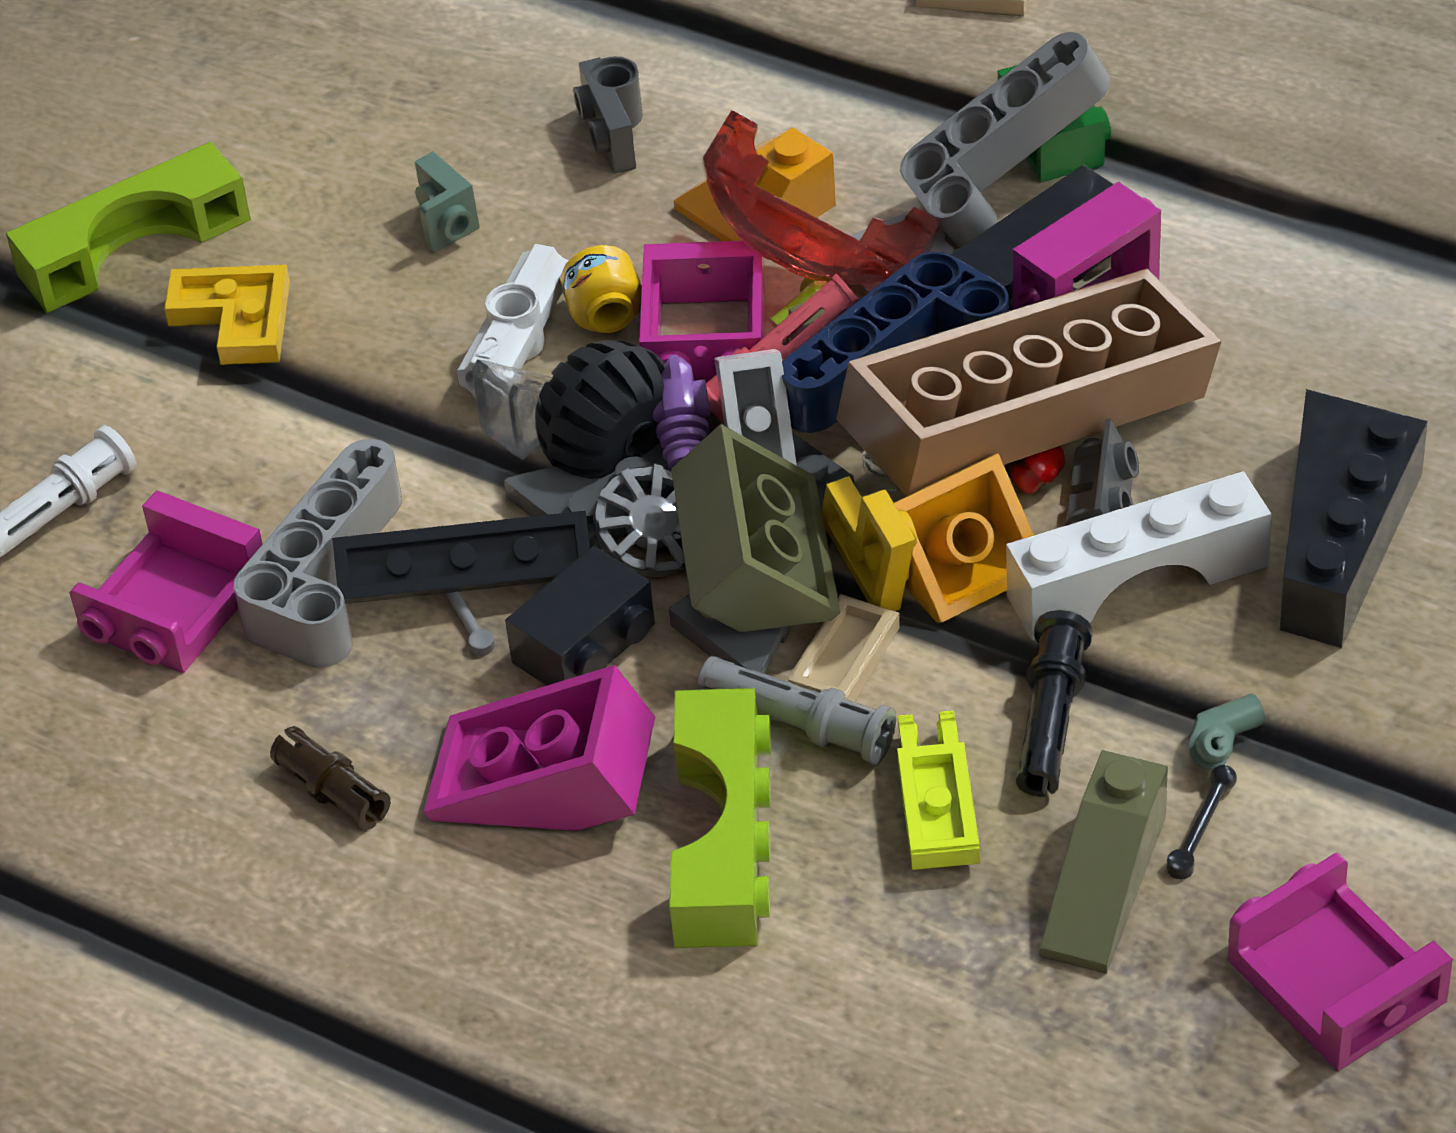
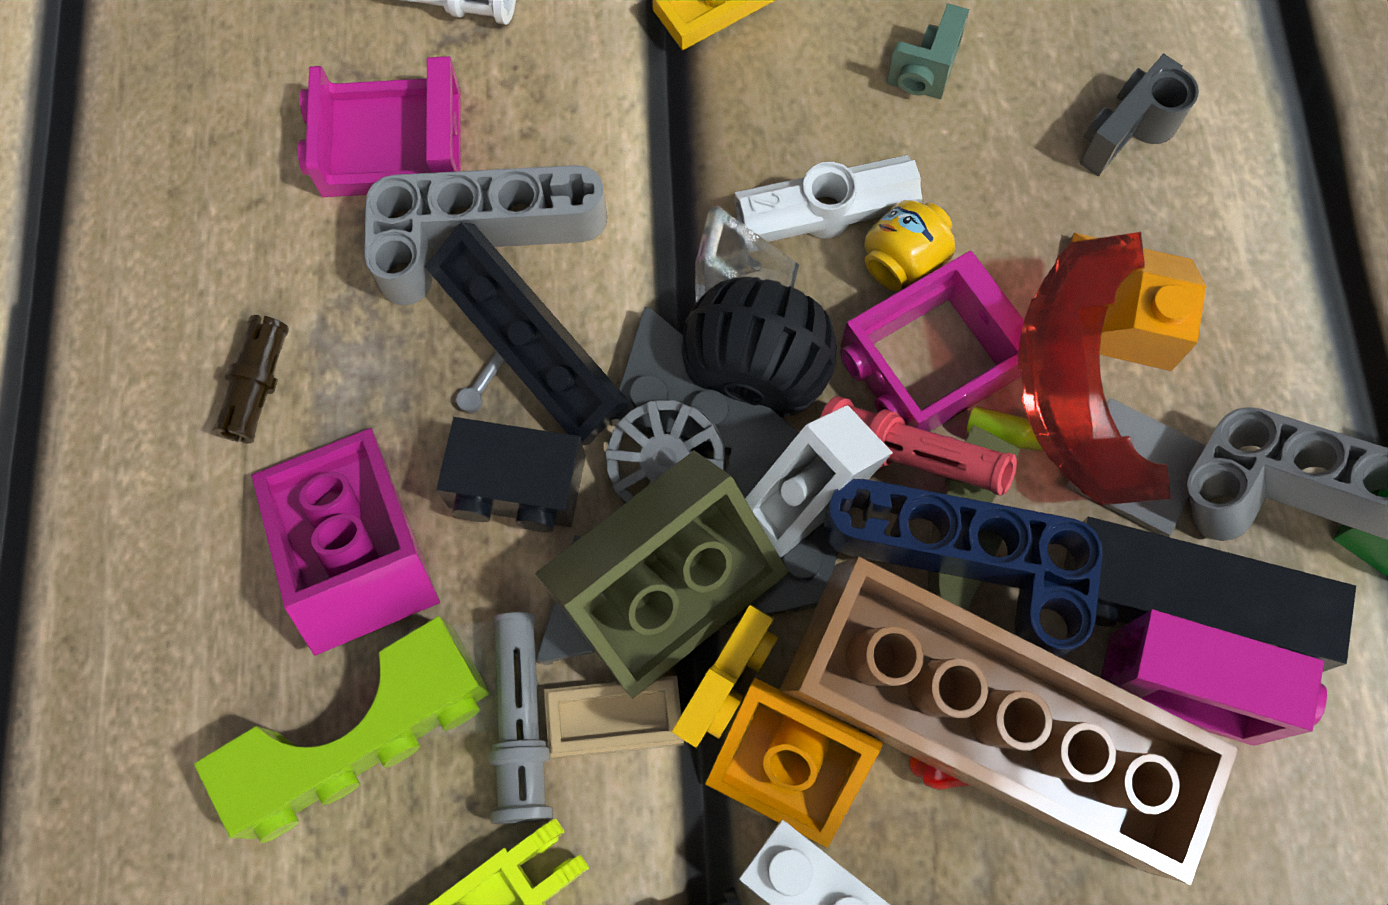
camera: 55 degrees right, 25 degrees up
(681, 411) = (788, 409): medium lavender piece -> none
(1102, 475) = (980, 837): dark grey hinge -> none

